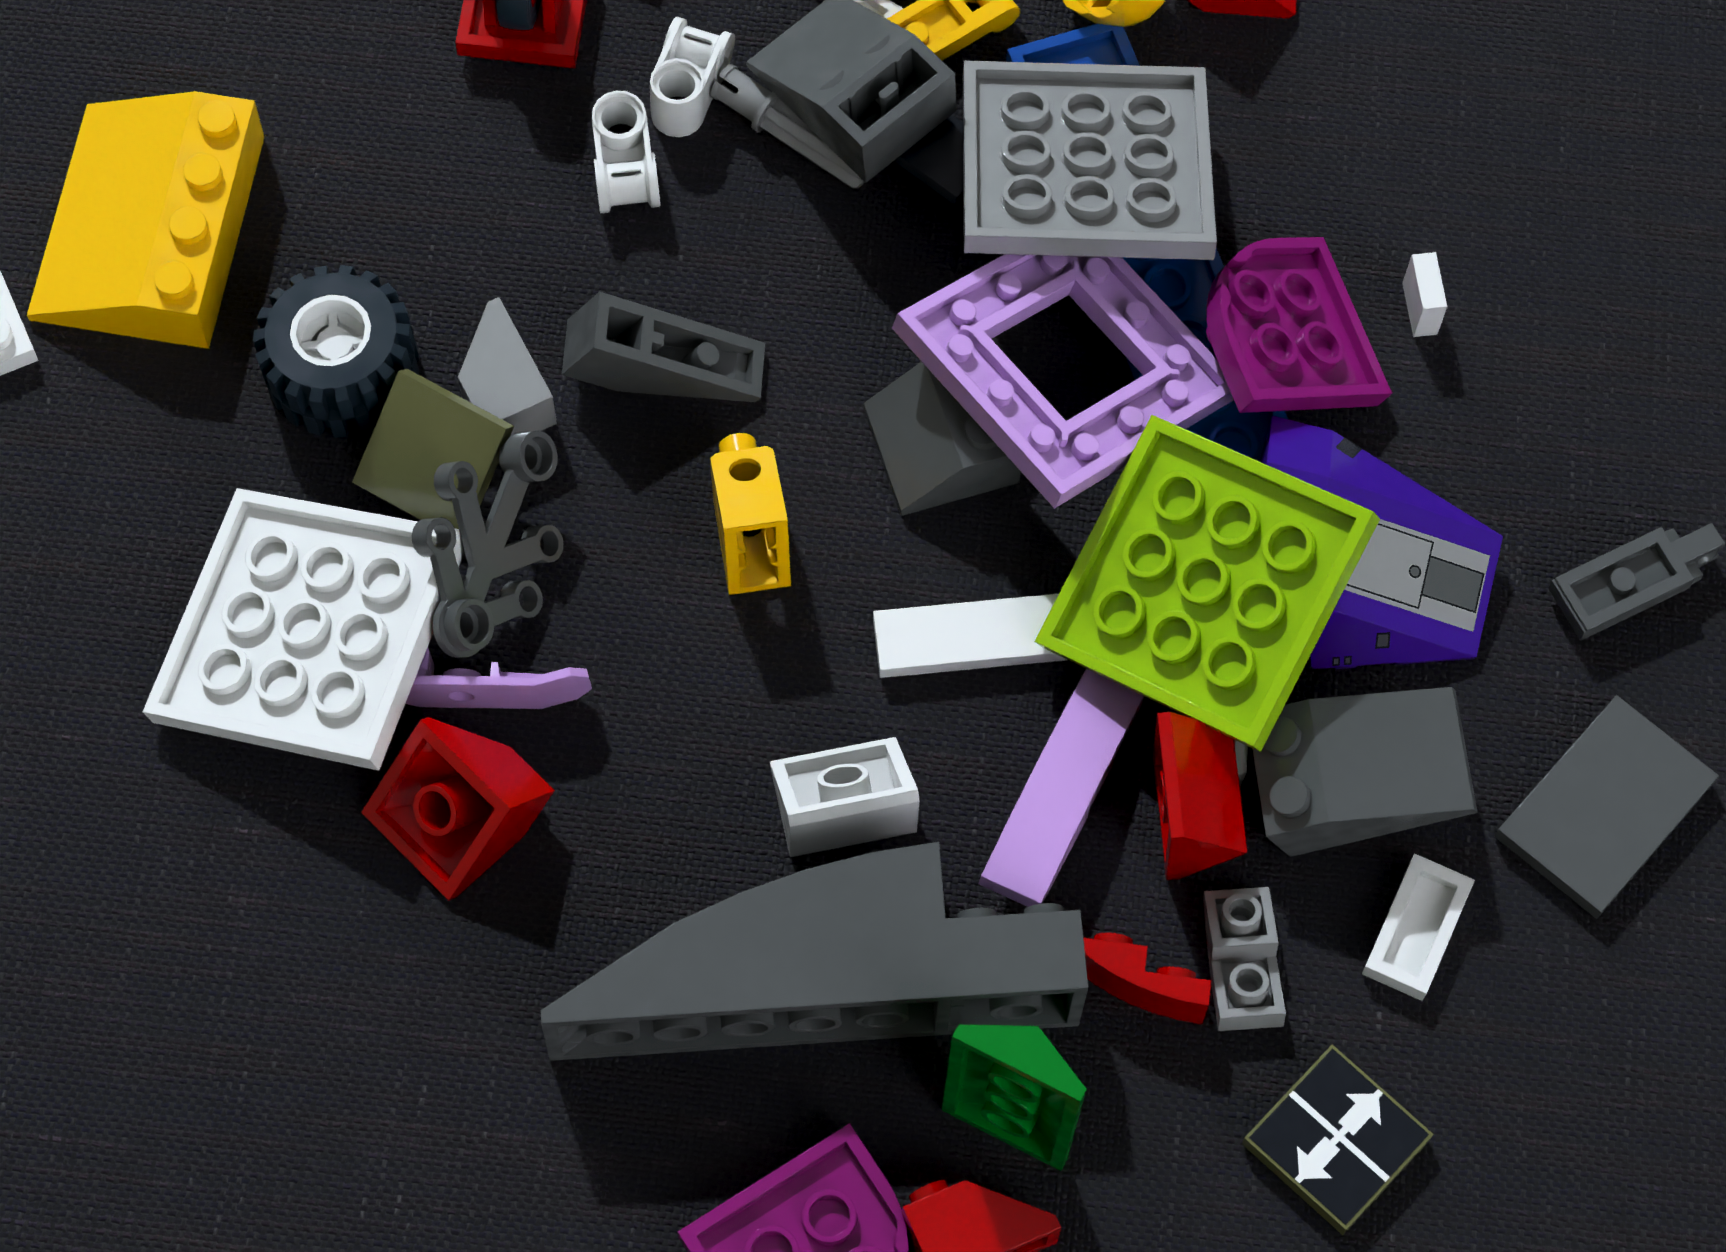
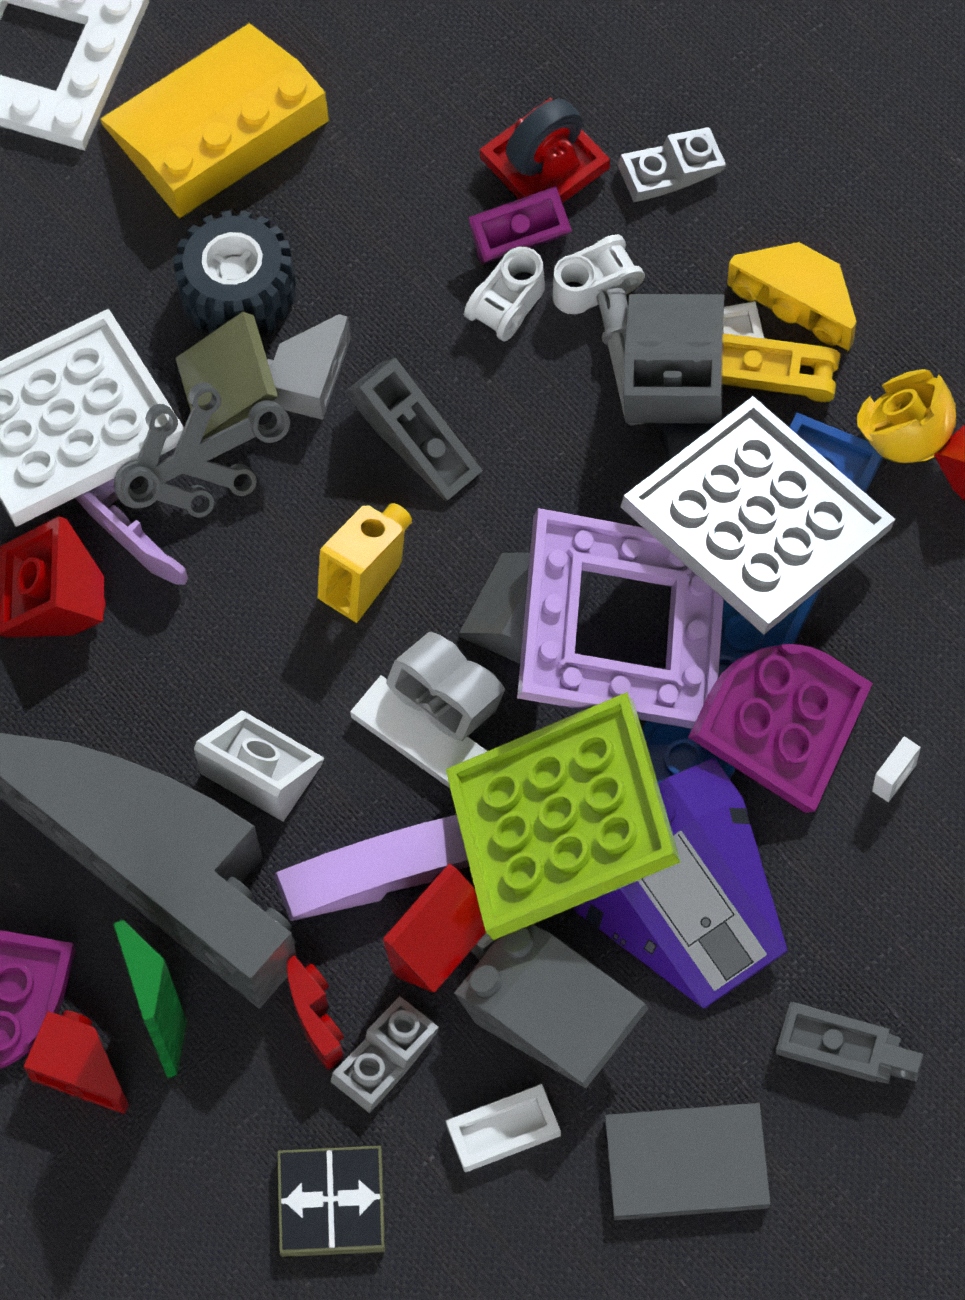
camera: 50 degrees right, 0 degrees up
(571, 83) = (519, 224): none -> magenta slope
(951, 566) = (445, 686): none -> light grey brick

